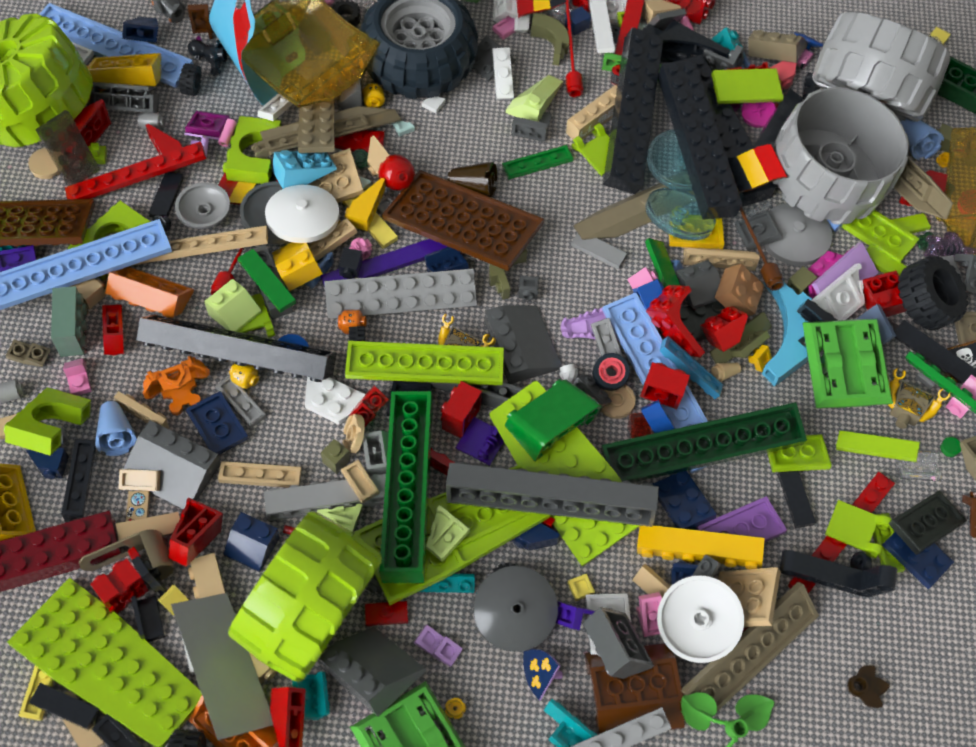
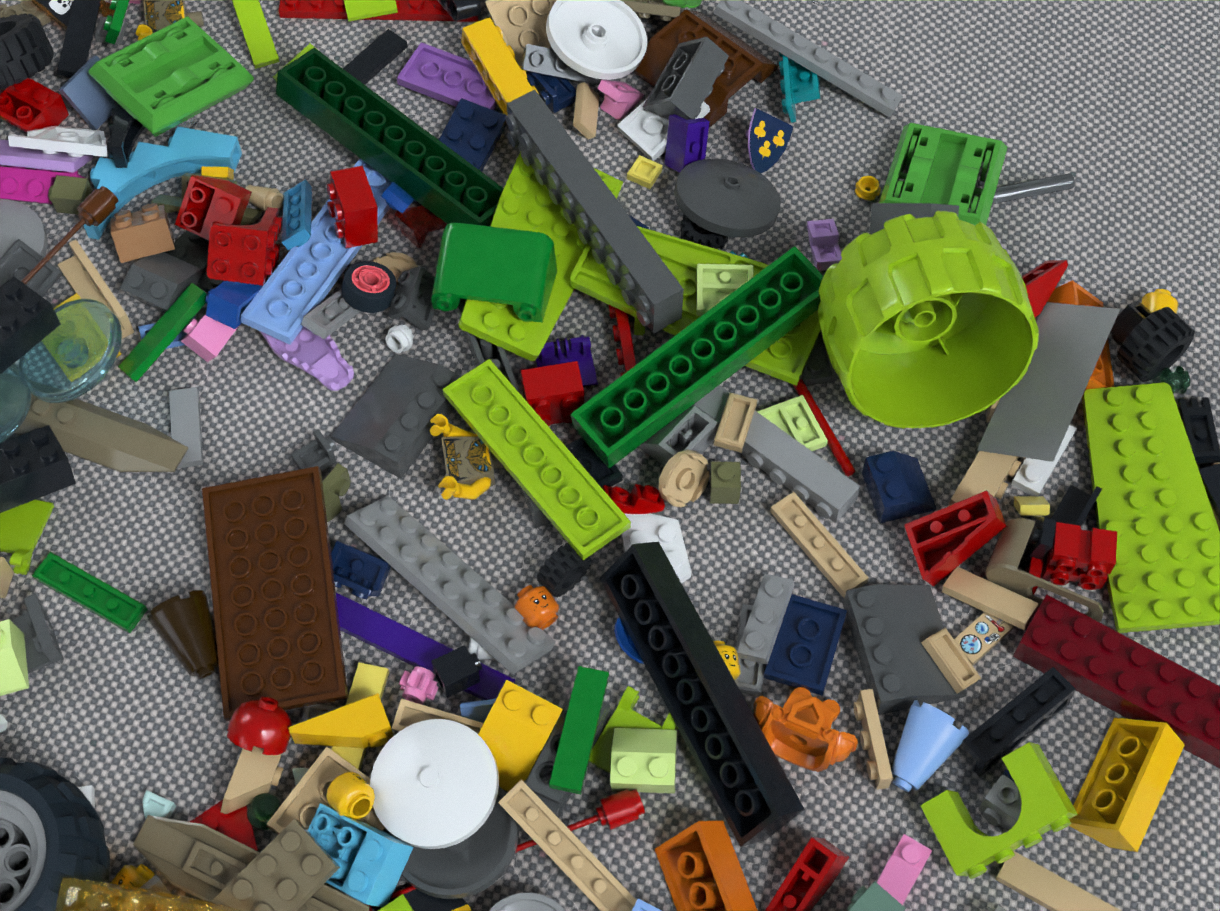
camera: 125 degrees left, 0 degrees up
(245, 412) = (765, 619): none -> light grey plate
(327, 178) = (350, 795): none -> yellow head

